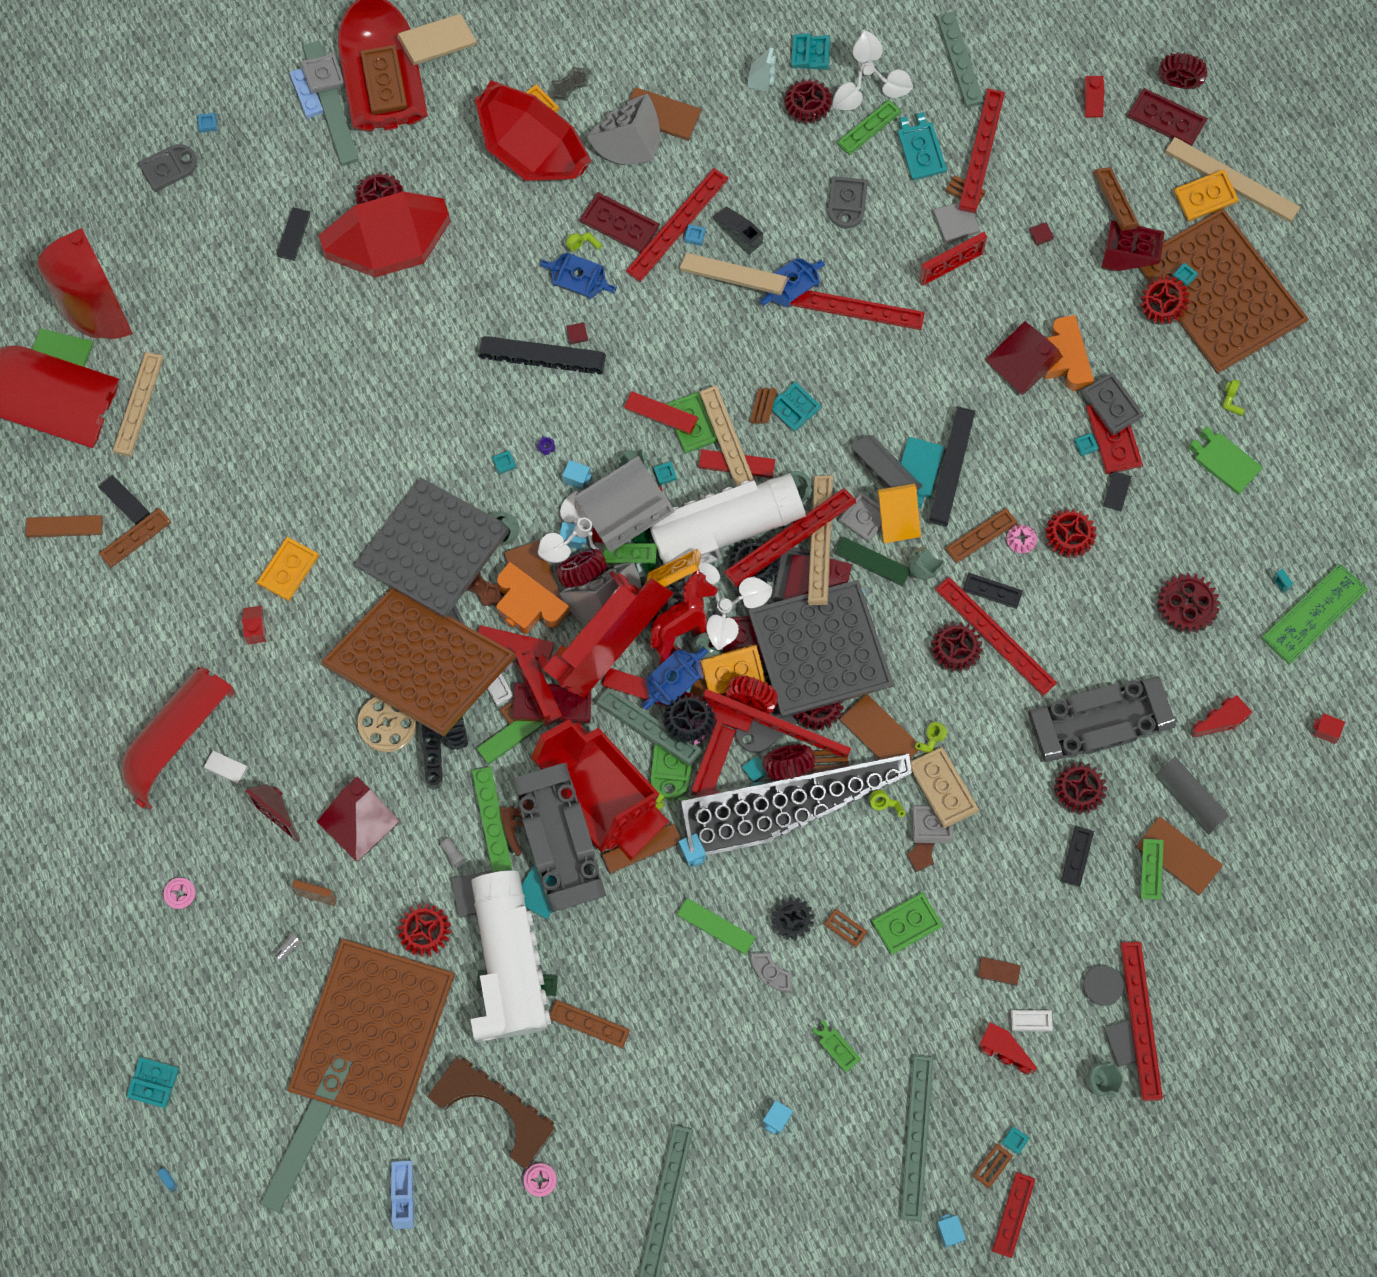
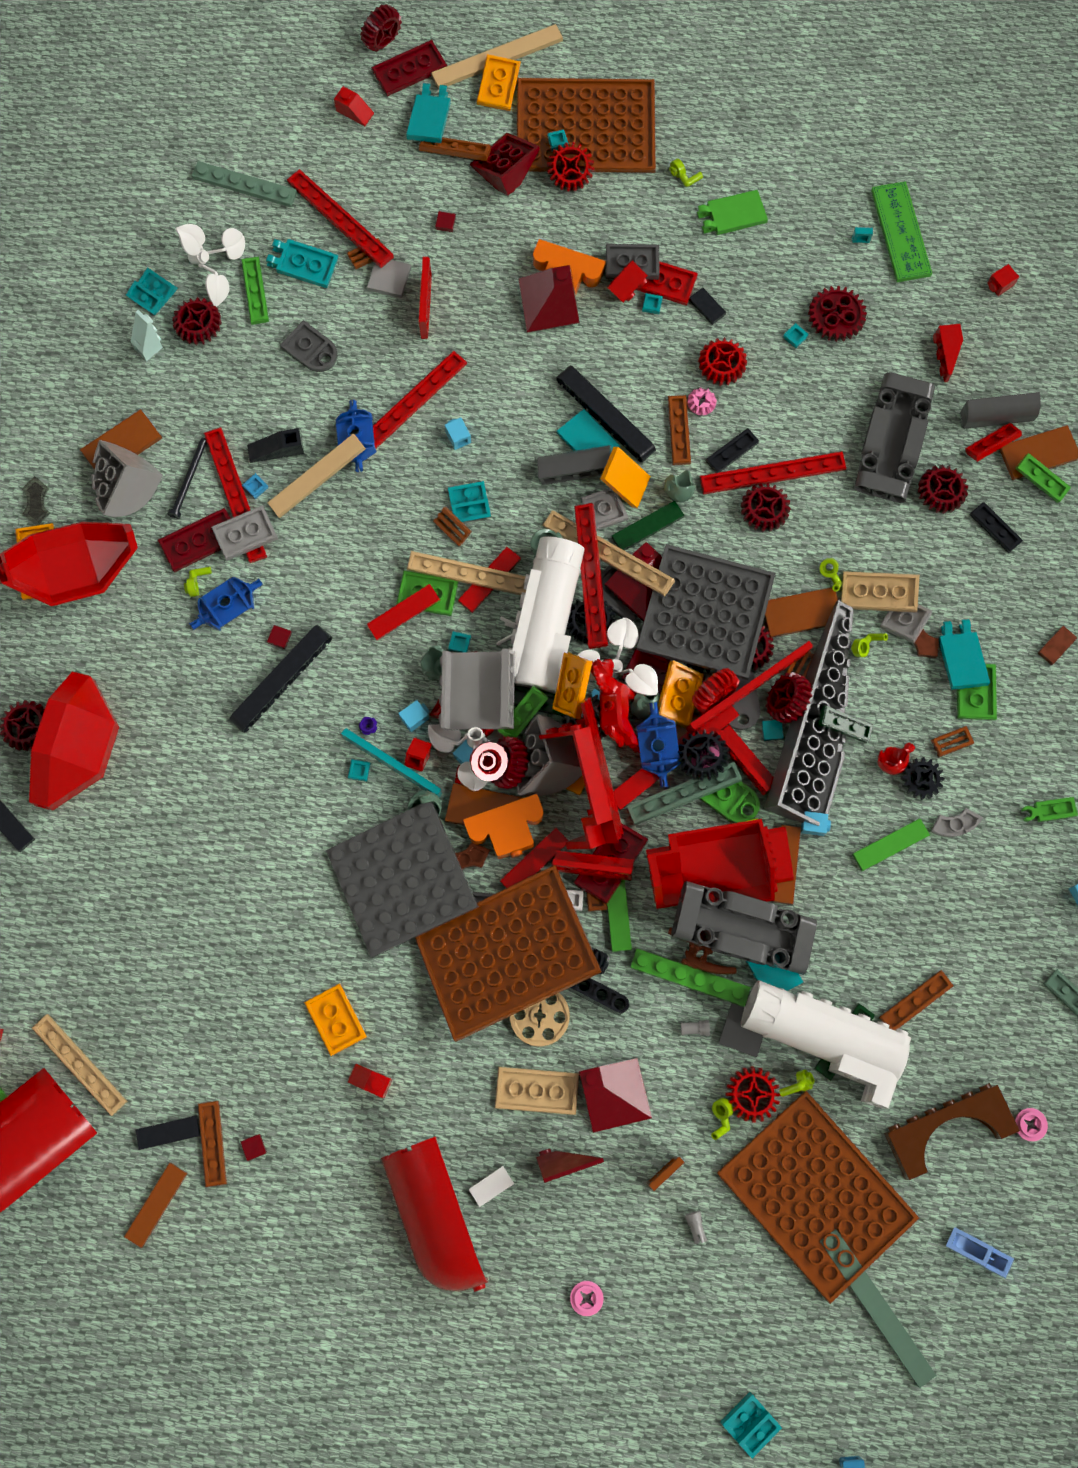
camera: 60 degrees left, 5 degrees up
(150, 570) = (253, 1147): none -> dark red tile
(323, 757) = (537, 1090): none -> tan tile
(394, 915) = (722, 1110): none -> lime plate
(461, 965) = (804, 1082): none -> lime plate
(525, 482) = (390, 762): none -> teal tile
(544, 497) = (417, 754): none -> red brick
(567, 548) = (488, 761): none -> piece
(647, 251) = (244, 533): none -> light grey tile
(666, 181) = (174, 512): none -> black bar
(794, 884) = (894, 759): none -> red hair
(798, 825) = (845, 724): none -> tile
(849, 359) = (457, 433): none -> medium azure brick
(928, 892) = (963, 657): none -> teal tile
(1087, 409) = (627, 281): none -> red brick
(1131, 159) = (429, 115): none -> teal tile
(1142, 581) = (795, 335): none -> teal tile
(1159, 808) = (993, 442): none -> red tile

